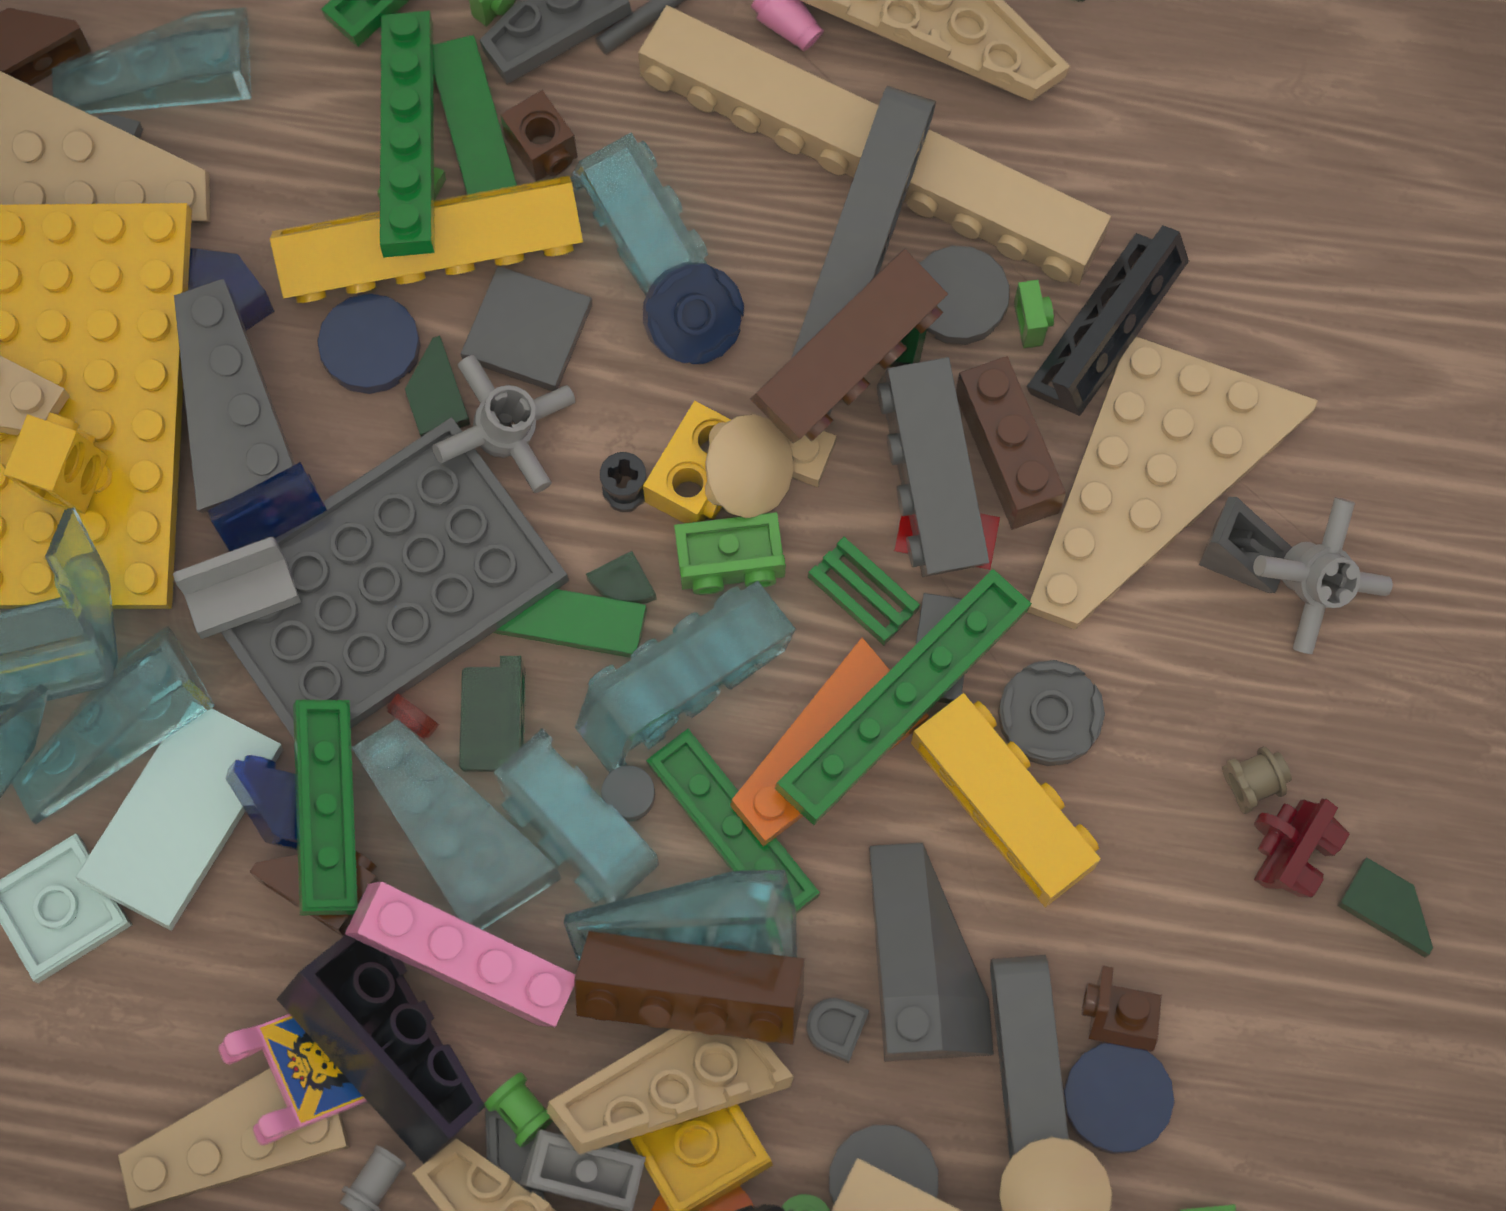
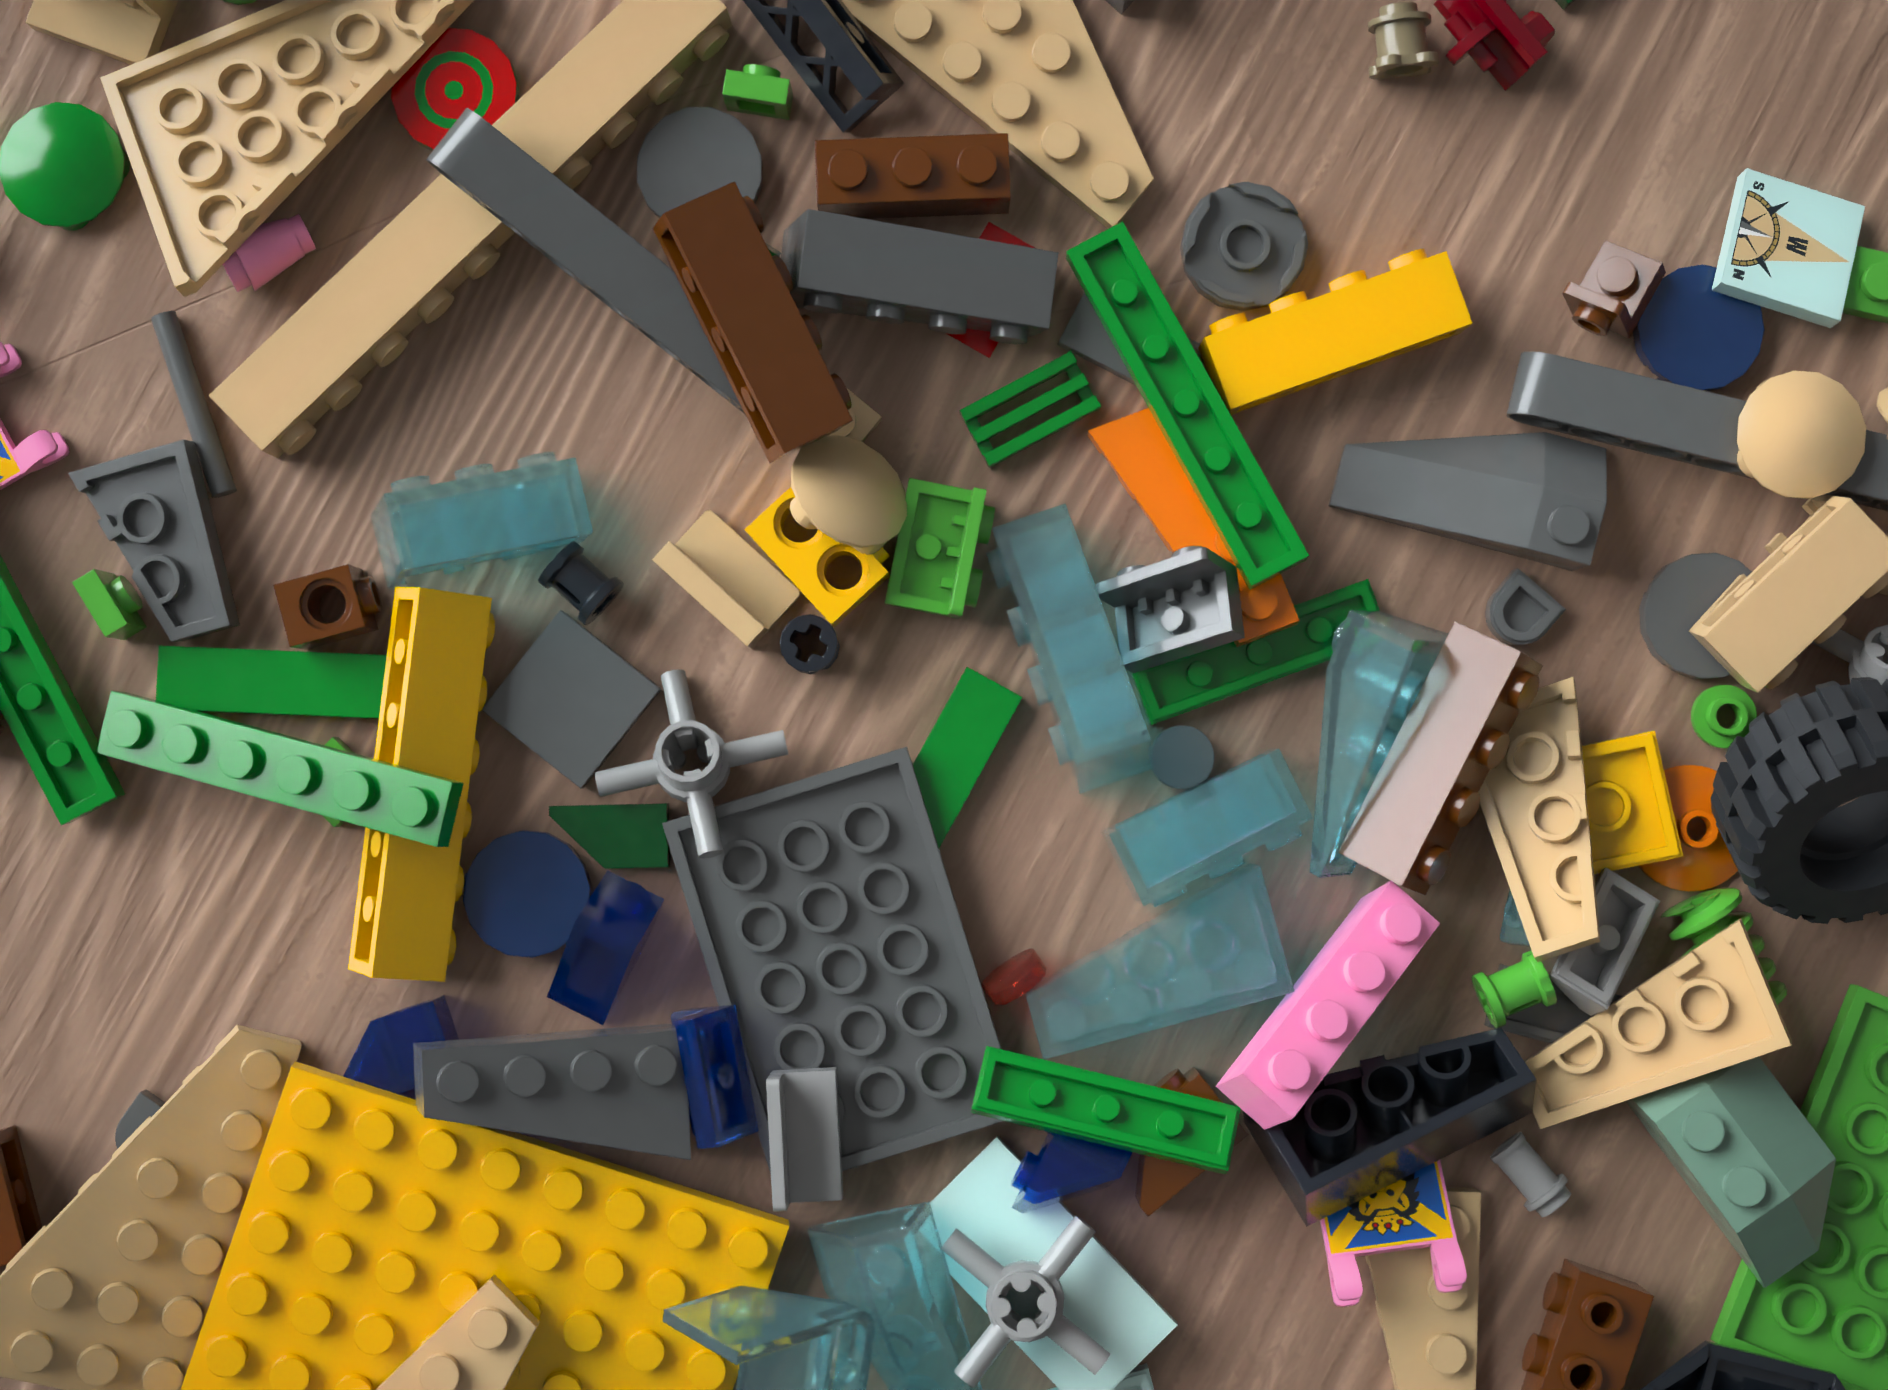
camera: 75 degrees left, 15 degrees up
(56, 461) = (592, 1315): yellow brick -> none
(161, 811) = (1020, 1275): none -> light grey bar
(172, 65) = (69, 1034): clear light blue wedge -> none
(345, 406) = (604, 947): none -> clear blue slope
(492, 714) = (1041, 885): clear green panel -> none
(616, 305) = (580, 582): none -> black bush
(622, 580) = (926, 684): clear green tile -> none
(652, 406) = (728, 578): none -> tan panel
(693, 313) = (626, 494): dark blue tile -> none
(742, 737) = (1174, 607): none -> dark grey bracket
(965, 108) = (454, 75): none -> red tile
(1211, 1147) = (1788, 248): none -> light aqua tile

